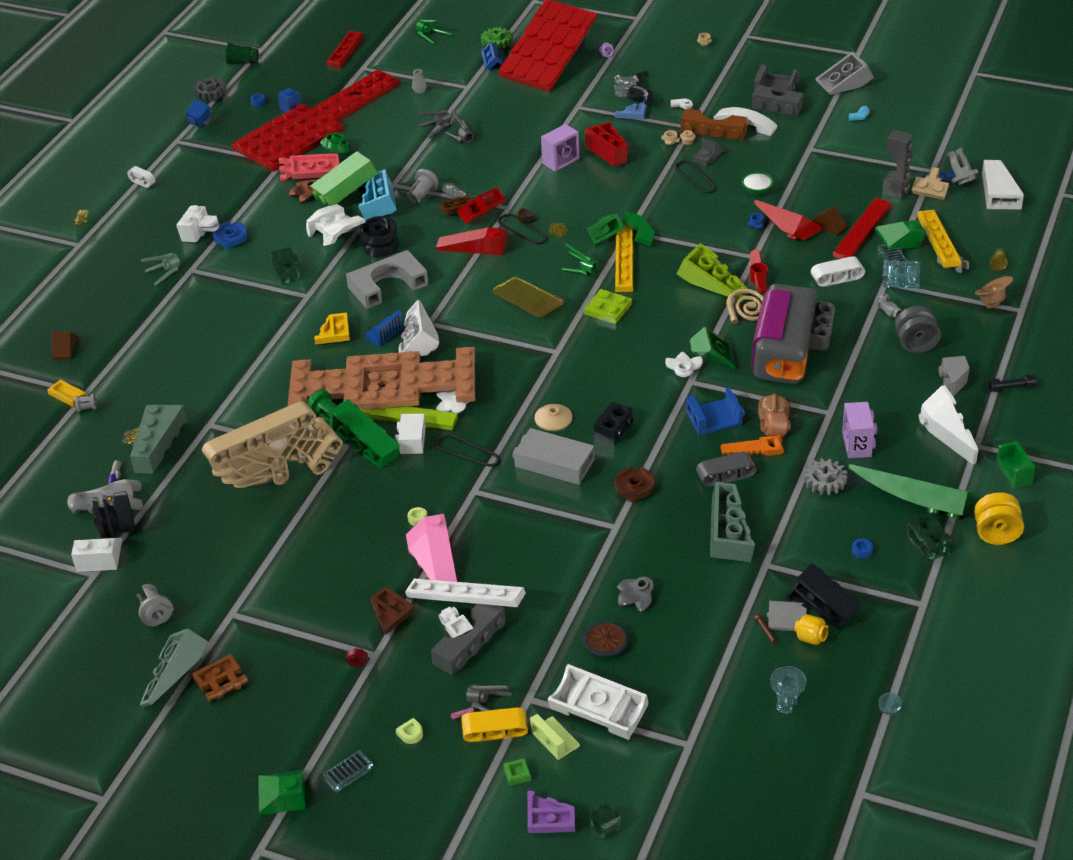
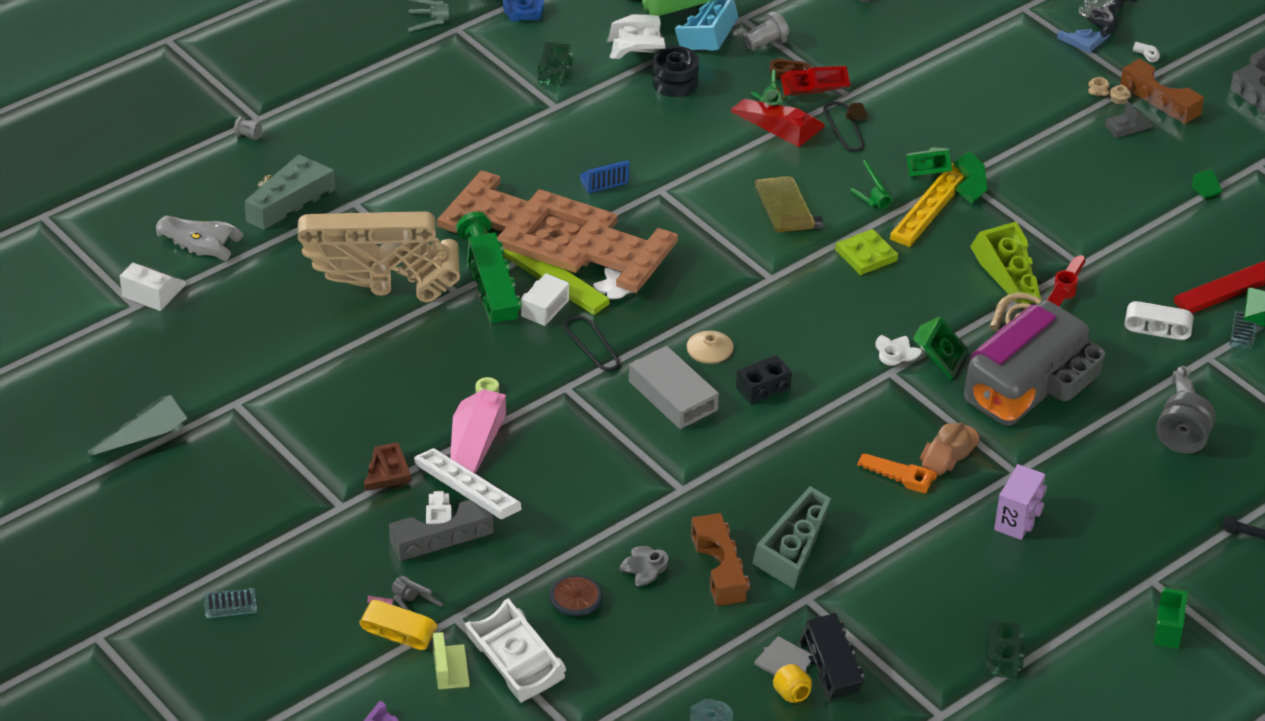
camera: 25 degrees right, 0 degrees up
(63, 344) = (270, 57): reddish brown slope -> none
(65, 392) = (236, 107): yellow tile -> none
(113, 514) = (188, 253): black wheel -> none
(115, 473) = (227, 212): light grey piece -> none
(155, 608) = (162, 363): light grey piece -> none
(217, 673) = (176, 453): dark orange plate -> none
(281, 792) = (156, 593): green slope -> none
(334, 329) = (552, 155): yellow wing -> none
(356, 657) = (318, 499): dark red tile -> none
(401, 266) = (672, 112): light grey arch -> none
(410, 732) = (317, 594): yellowish green tile -> none
(419, 331) = (638, 196): white wedge -> none
(453, 191) = (799, 51): clear arm -> none
(463, 225) = (771, 93): none -> green plant
(517, 772) = (388, 680): bright green tile -> none
(557, 229) = (882, 142): clear yellow plant -> none
(560, 147) = (953, 48): lavender brick -> none
(606, 143) = (1013, 63): red wedge -> none
(638, 491) = (727, 462): copper plate -> none
(669, 550) = (713, 538): none -> dark orange arch
(686, 161) = (1082, 148): black piece -> none
(716, 414) = (884, 419): blue panel -> none
(726, 469) = (845, 481): dark grey beam -> none
(756, 220) = (1117, 224): blue plate -> none
(757, 183) = (1152, 180): piece -> none
(759, 619) = (750, 648): reddish brown piece -> none
(762, 123) = (1222, 112): white slope -> none
(791, 172) = (1206, 184): none -> green slope
(791, 223) = (1149, 242): wedge -> none
(825, 476) = (945, 536): light grey gear -> none
(831, 221) = (1202, 261): reddish brown slope -> none
(862, 548) = (924, 629): blue tile -> none
(901, 274) = (1227, 354): clear light blue brick -> none
(923, 493) = (1044, 608): green wedge -> none
(944, 423) = (1128, 538): white wedge -> none
(954, 373) = (1192, 491): light grey slope -> none
(999, 518) = (1091, 663): yellow wheel -> none

